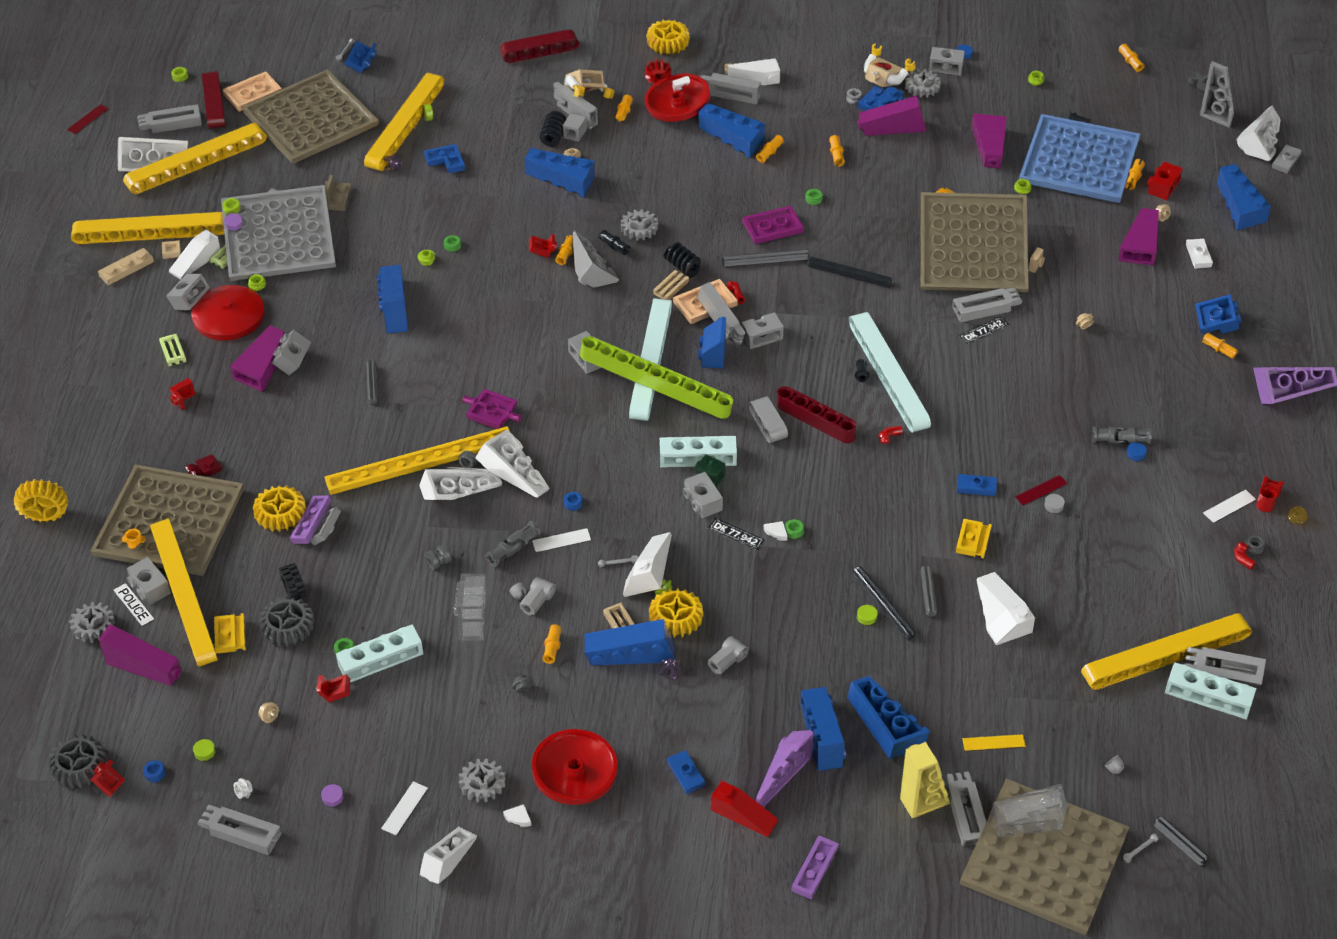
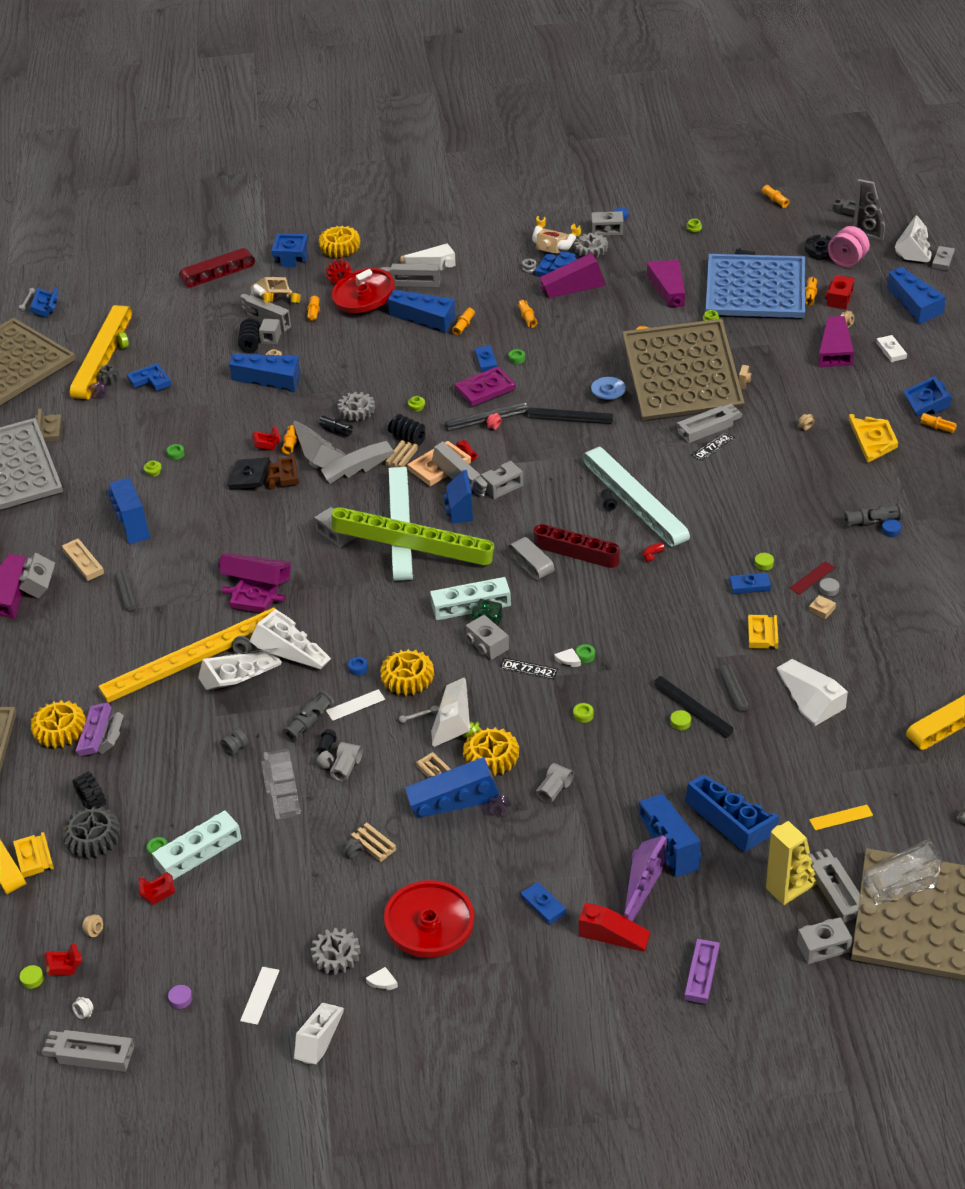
camera: 10 degrees left, 5 degrees down
(234, 742) = (62, 962): none -> red bracket
(338, 343) = (83, 559): none -> tan plate
(406, 148) = (108, 374): none -> dark grey gear
(499, 383) = (255, 568): none -> magenta slope
(517, 279) = (249, 473): none -> black plate
(526, 569) = (328, 738): none -> black pin
(536, 669) = (377, 840): none -> tan tile
(552, 644) = (373, 804): light orange pin -> none
(555, 284) = (287, 472): none -> reddish brown plate
(616, 36) = (289, 247): none -> blue panel
(617, 516) = (407, 672): none -> yellow gear
(631, 284) = (360, 459): none -> light grey slope
(700, 232) = (416, 403): none -> lime plate
(771, 265) = (494, 421): none -> coral plate
(775, 589) = (583, 713): none -> lime tile
(782, 193) = (485, 358): none -> blue plate
(895, 248) = (608, 388): none -> medium blue dish
(929, 868) = (824, 940): none -> light grey brick
(997, 464) = (764, 561): none -> lime tile
(1040, 523) = (822, 607): none -> tan plate
(1149, 349) = (873, 436): none -> yellow wing
(1166, 128) = (817, 246): none -> black plate
(1187, 131) = (848, 246): none -> bright pink wheel

